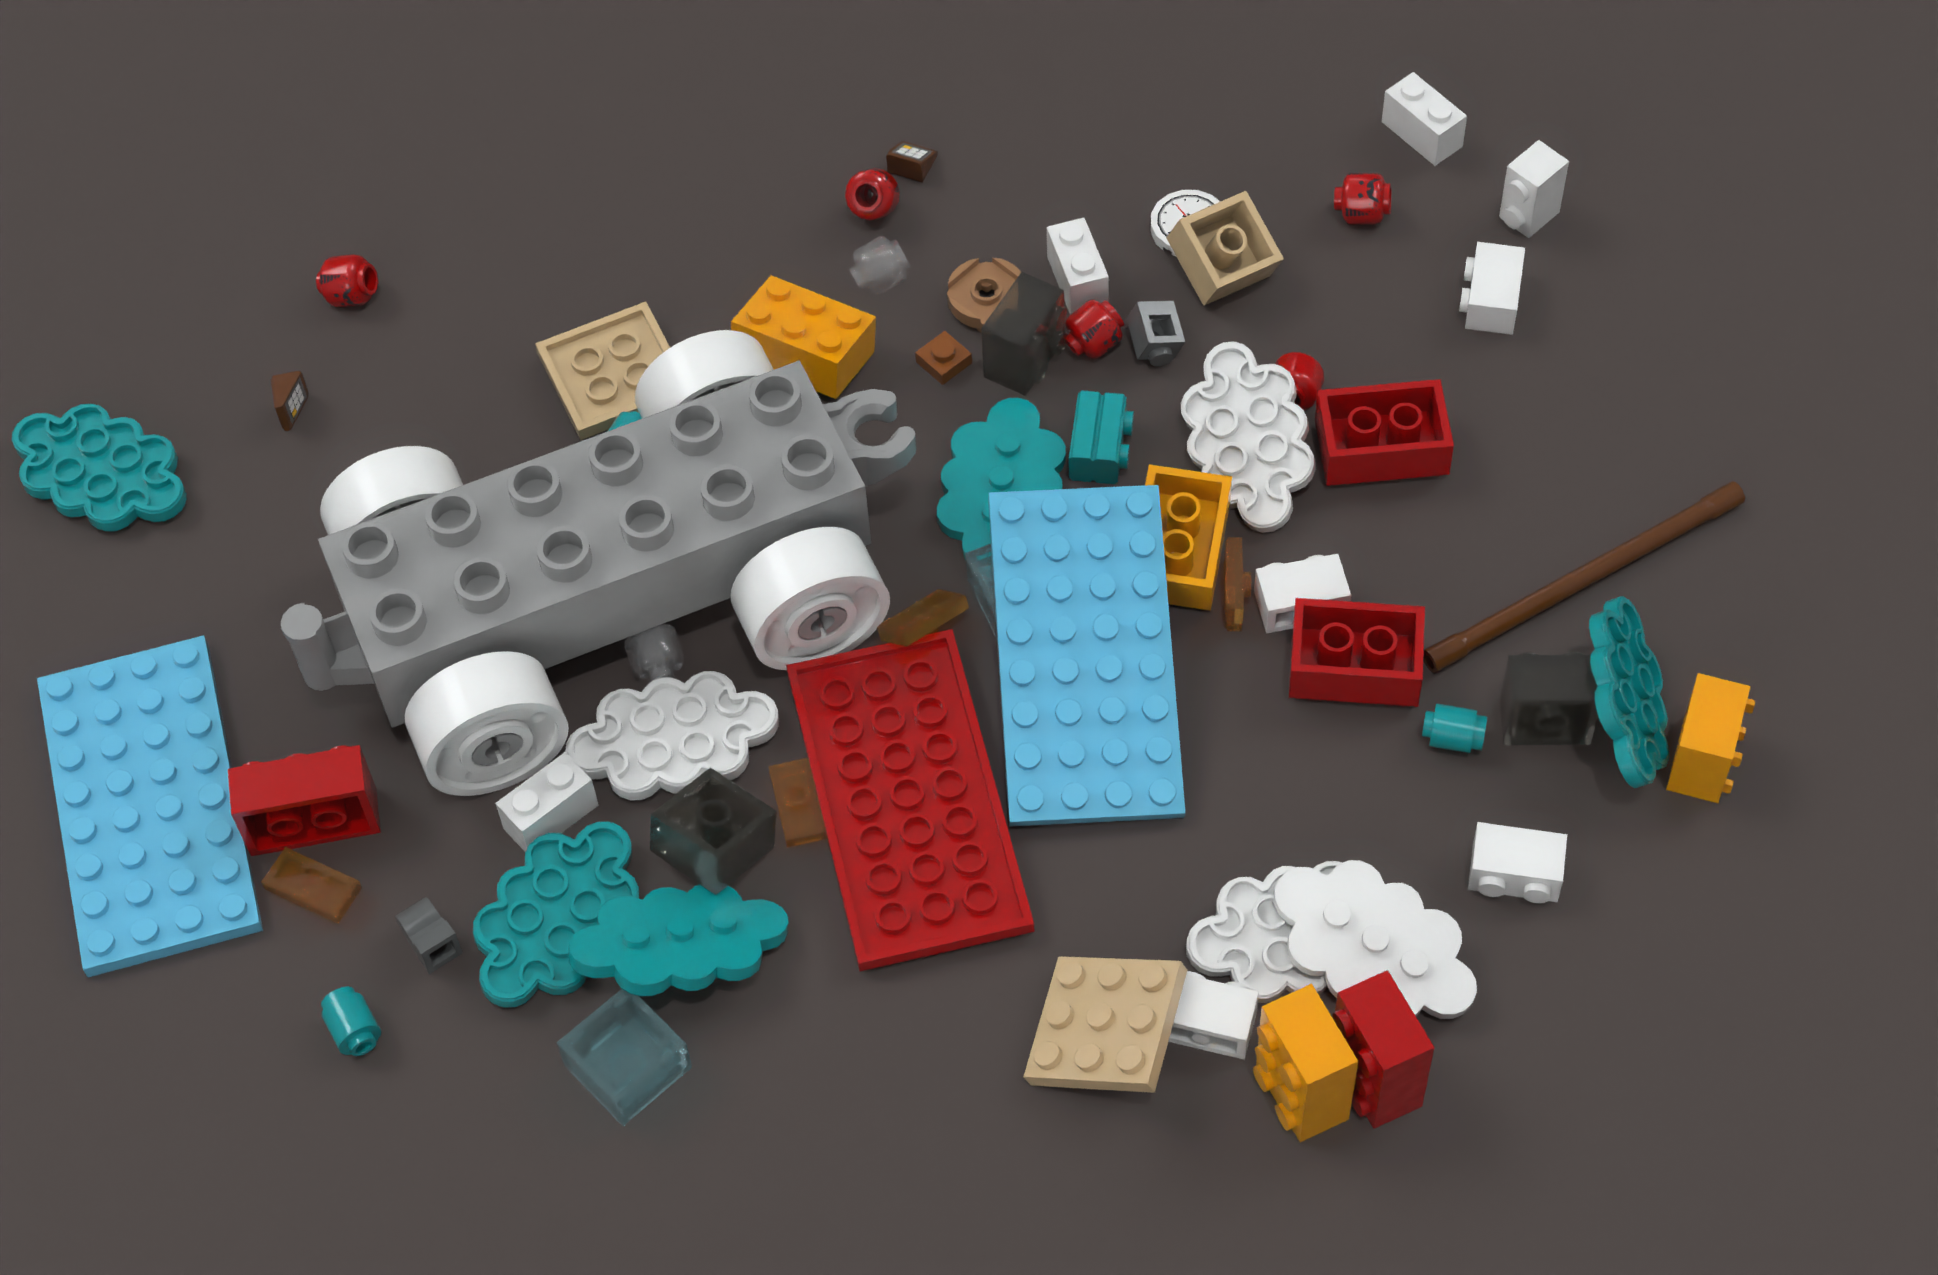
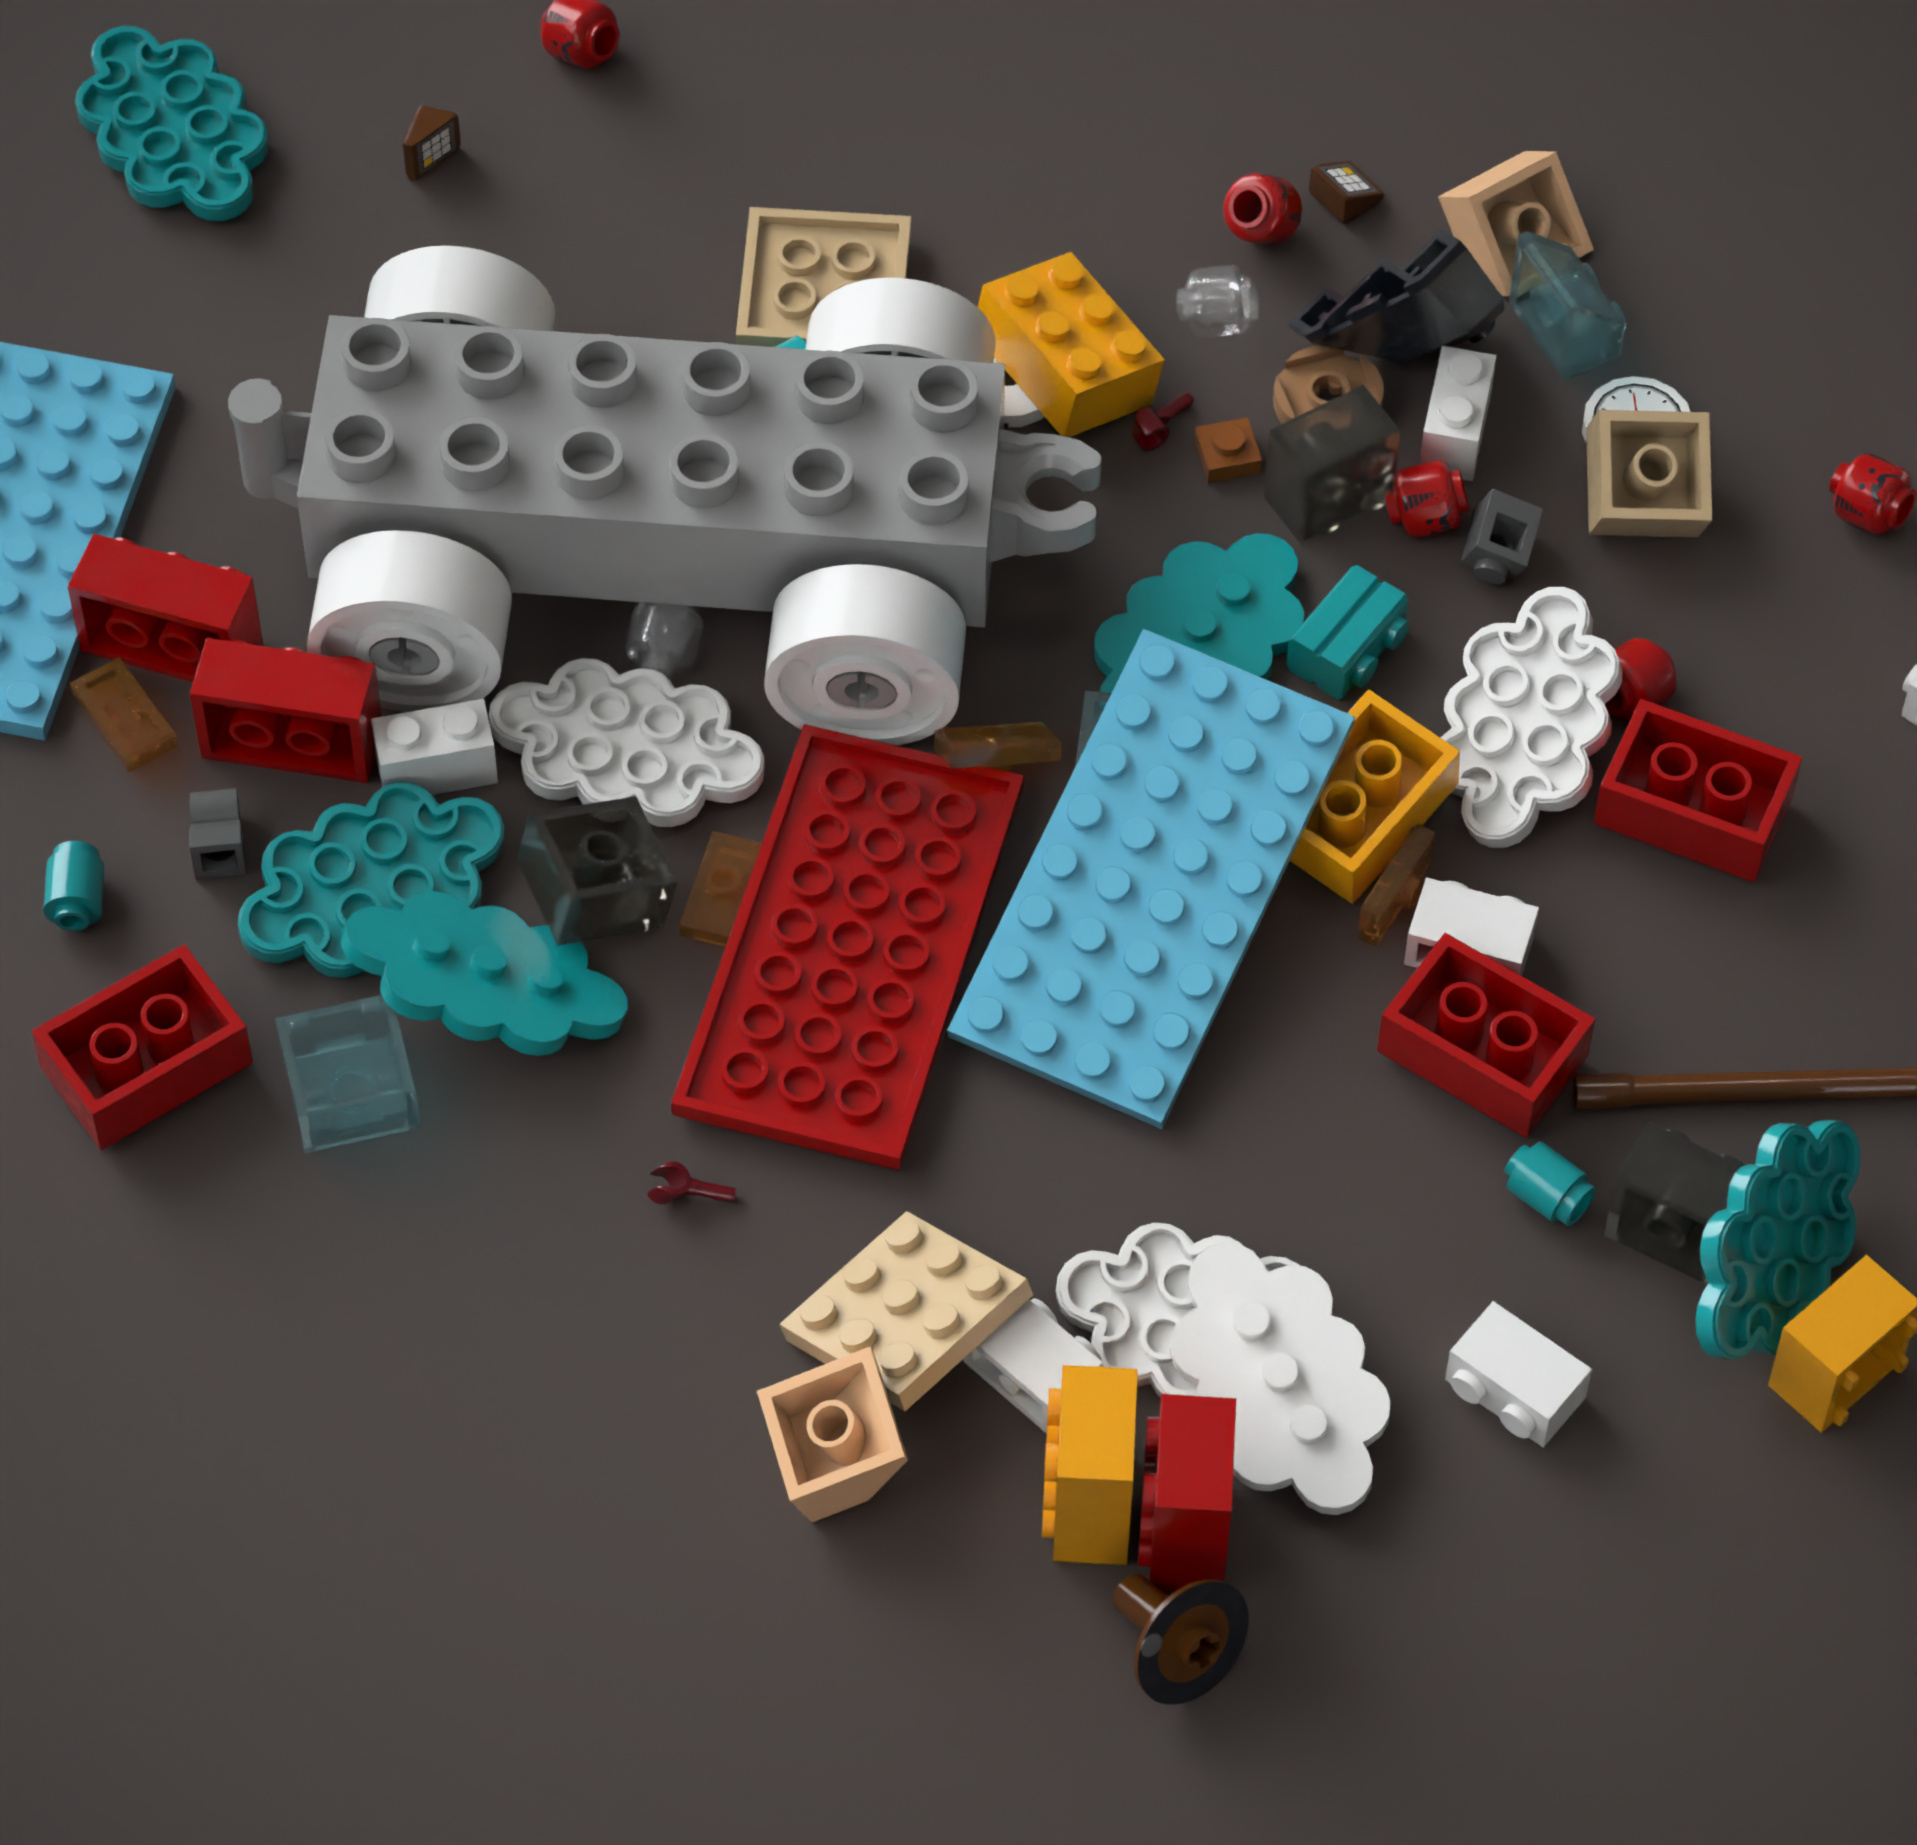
camera: 25 degrees right, 0 degrees up
(430, 825) = (286, 709): none -> red brick
(471, 1110) = (142, 1046): none -> red brick
(886, 366) = (1151, 424): none -> dark red hand
(897, 1014) = (682, 1183): none -> dark red hand
(1011, 213) = (1407, 311): none -> black brick
(1034, 129) = (1510, 200): none -> light nougat slope
(1100, 170) = (1564, 306): none -> clear light blue slope
(1118, 1130) = (833, 1434): none -> light nougat slope
(1431, 1147) = (1185, 1637): none -> piece

